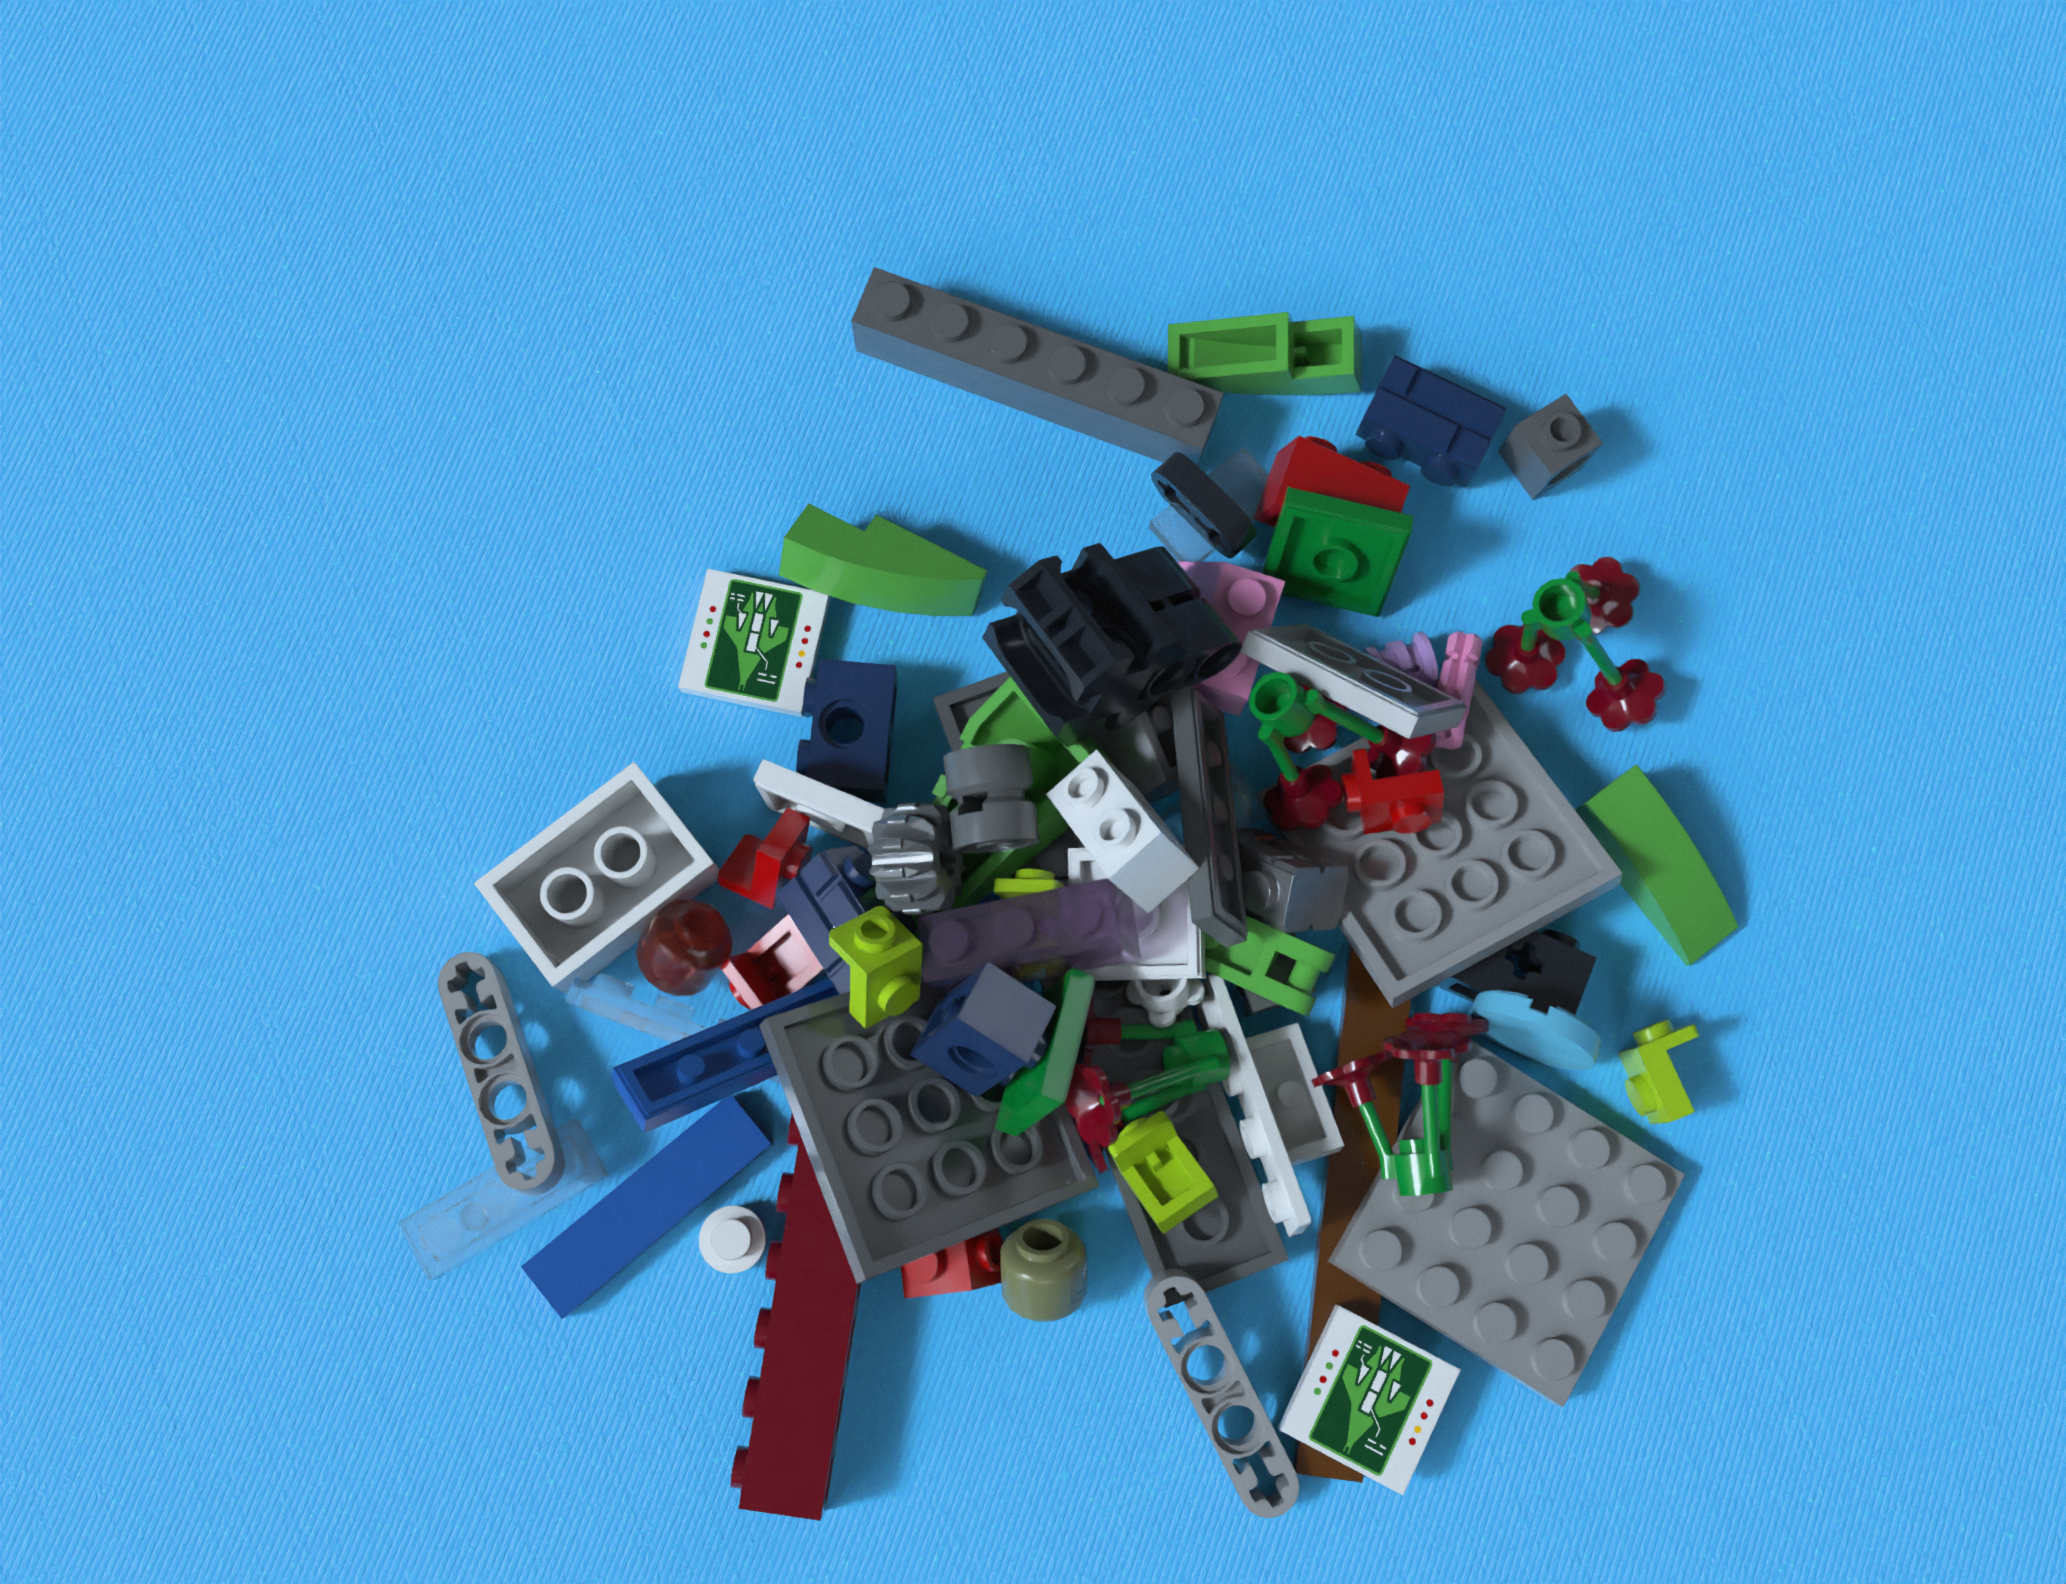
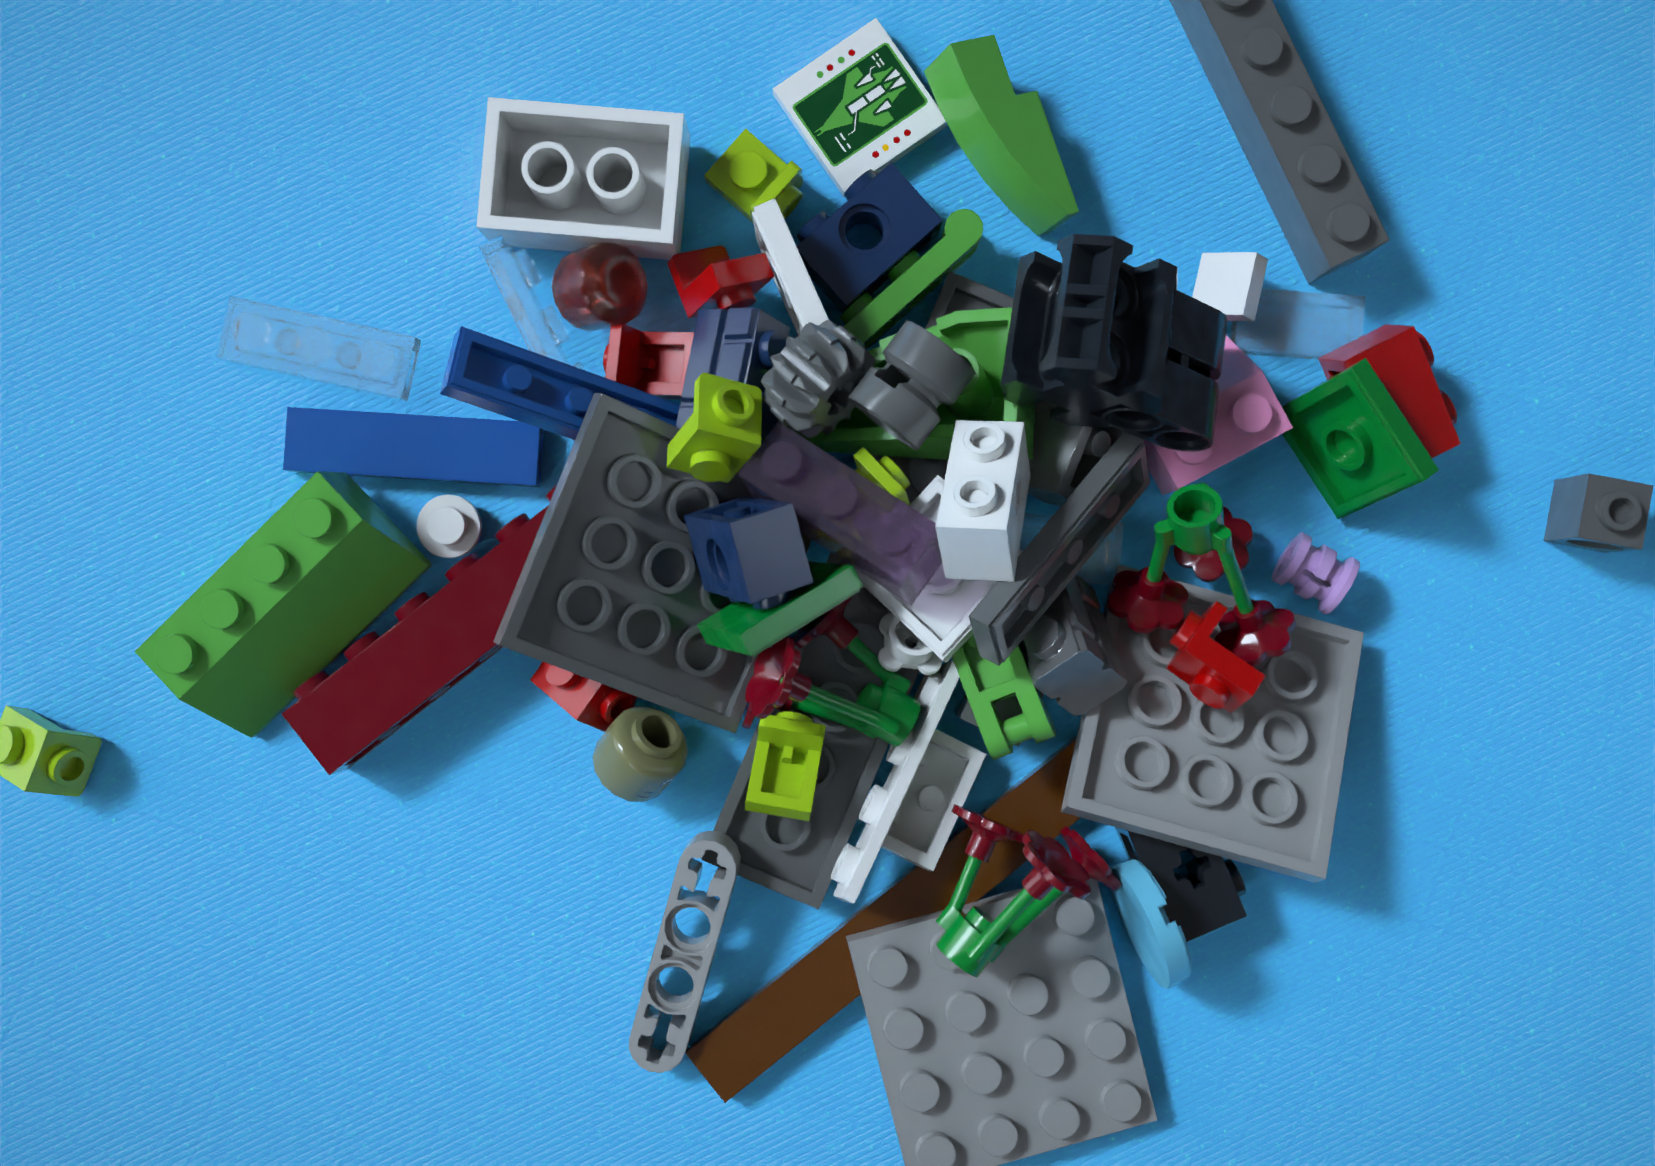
camera: 50 degrees right, 10 degrees up
(492, 1075) = (382, 252): light grey beam -> none
(661, 1424) = (284, 604): none -> bright green slope
(725, 763) = (753, 175): none -> lime bracket
(913, 724) = (914, 279): none -> bright green plate
(1142, 522) = (1231, 283): none -> white tile
(1203, 505) = (1289, 312): black beam -> none
(1268, 355) = (1454, 243): bright green slope -> none
(1355, 679) = (1270, 550): light grey tile -> none
(1369, 1399) = (782, 1055): tile -> none
(1429, 423) = (1524, 410): dark blue brick -> none
(1458, 681) = (1340, 627): bright pink axle -> none
(1580, 609) = (1489, 653): dark red plant -> none
(1652, 1080) = (1200, 1037): lime bracket -> none
(1659, 864) = (1362, 891): bright green slope -> none

